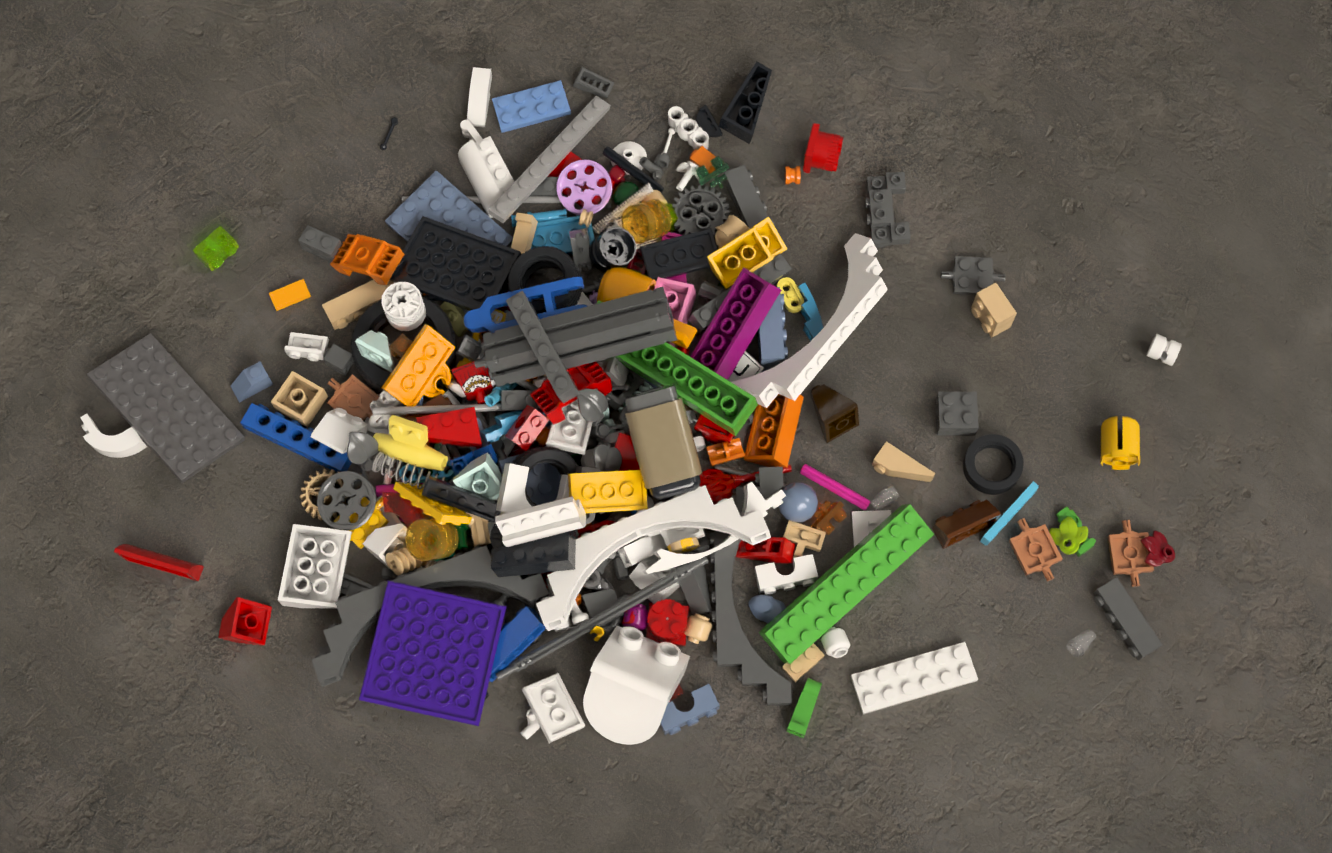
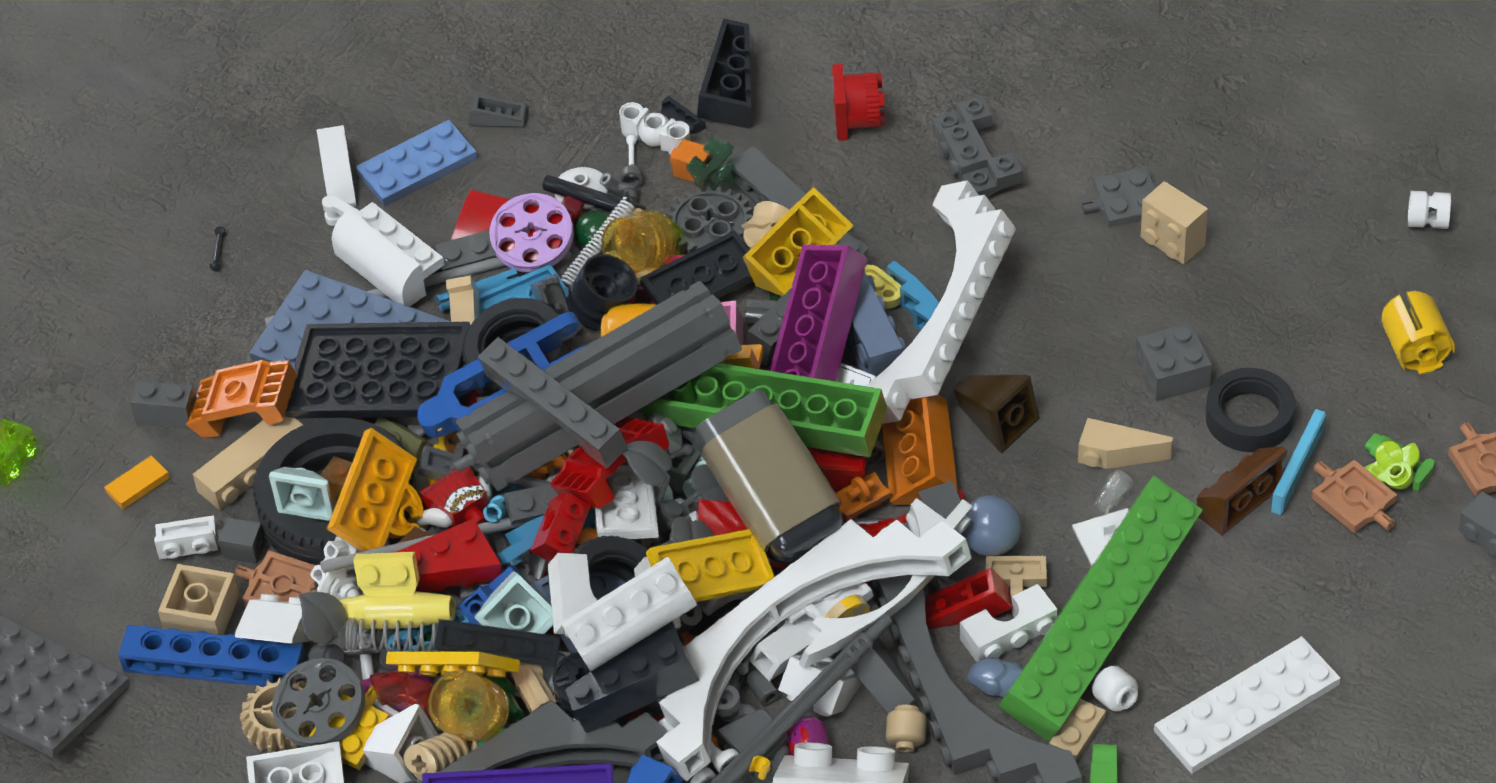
camera: 15 degrees left, 20 degrees down
(251, 382) = (116, 603): sand blue slope -> none
(409, 312) = (322, 425): white wheel -> none
(549, 159) = (468, 208): light grey plate -> none
(586, 218) = (548, 265): tan bush -> none
(667, 622) = (857, 722): red piece -> none
(690, 169) = (674, 177): white plant -> none
(792, 175) = (825, 144): orange wheel -> none
(834, 510) = (1047, 528): clear orange hips -> none
(835, 487) = (1039, 500): dark pink axle -> none
(1079, 644) = (1465, 593): clear cone -> none

